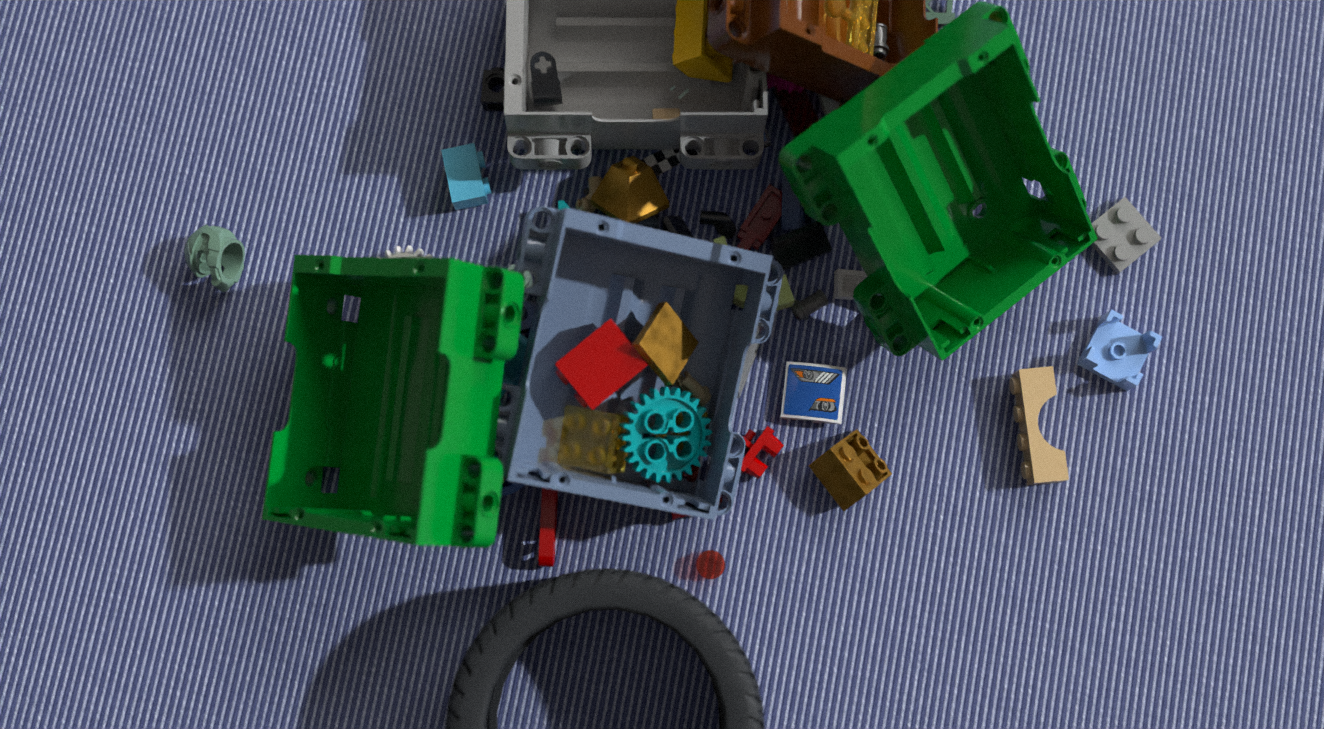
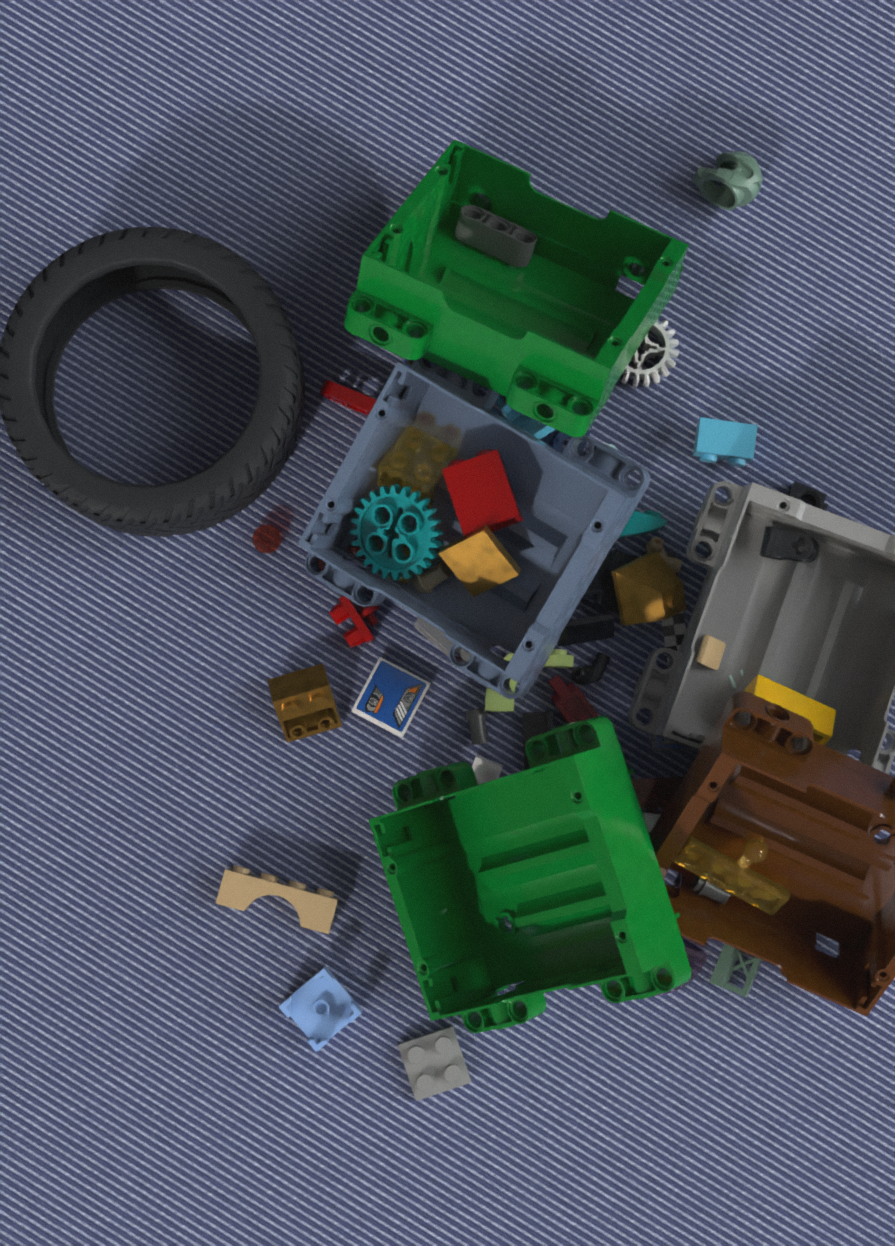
camera: 110 degrees right, 5 degrees up
(343, 451) = (495, 235): none -> dark grey beam

